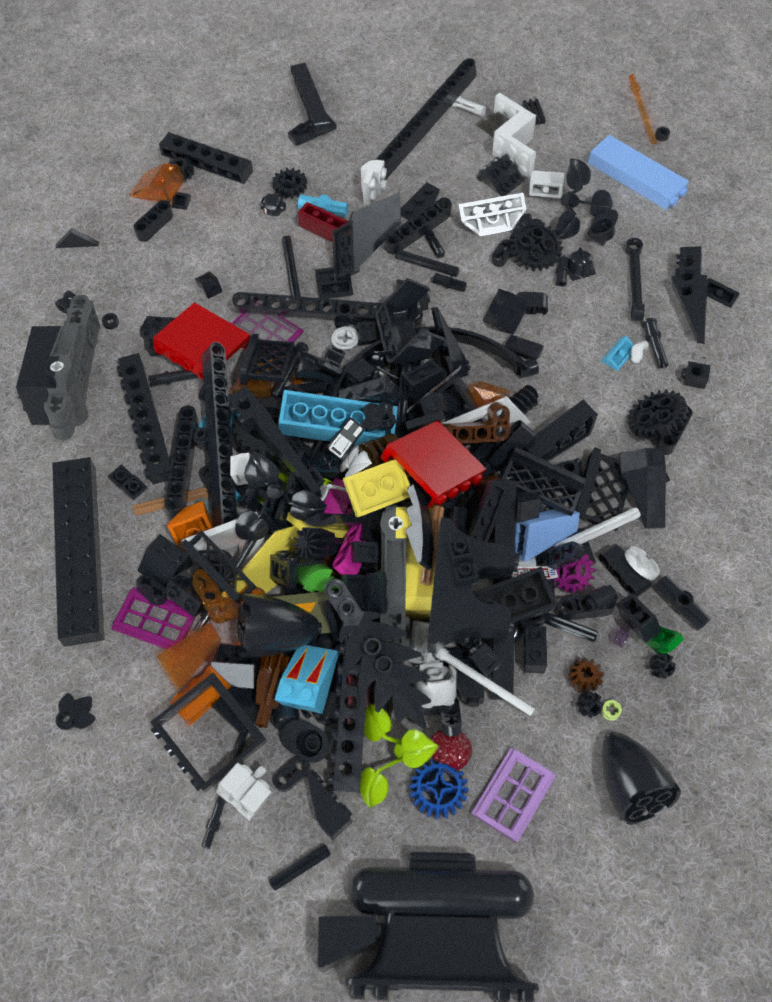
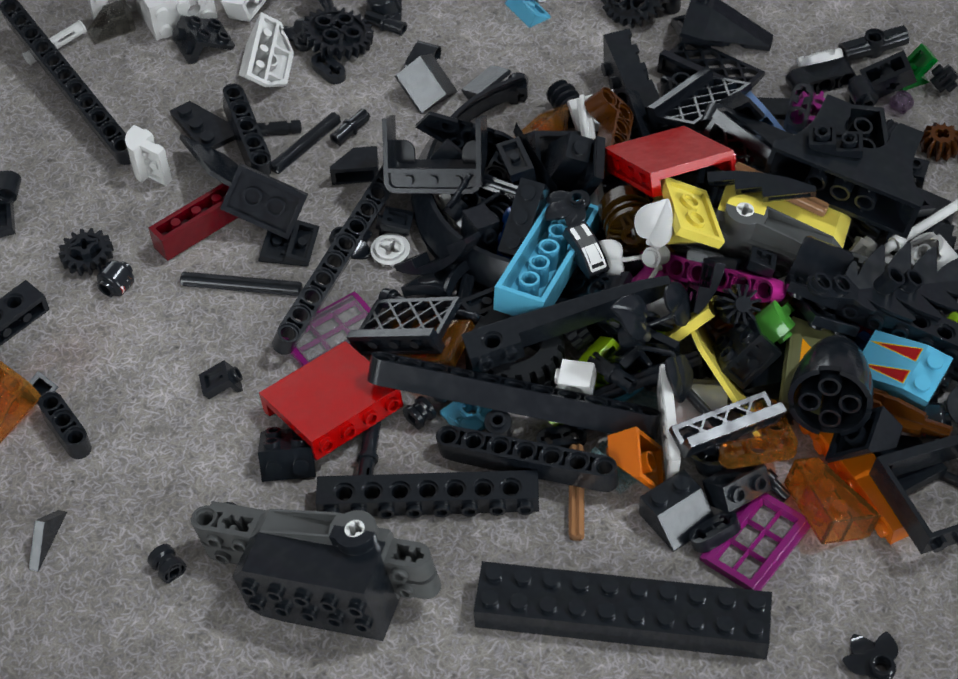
camera: 70 degrees left, 10 degrees down
(127, 483) = (530, 537): black slope -> none
(326, 203) = (139, 234): medium azure piece -> none
(603, 527) = (765, 82): white axle -> none

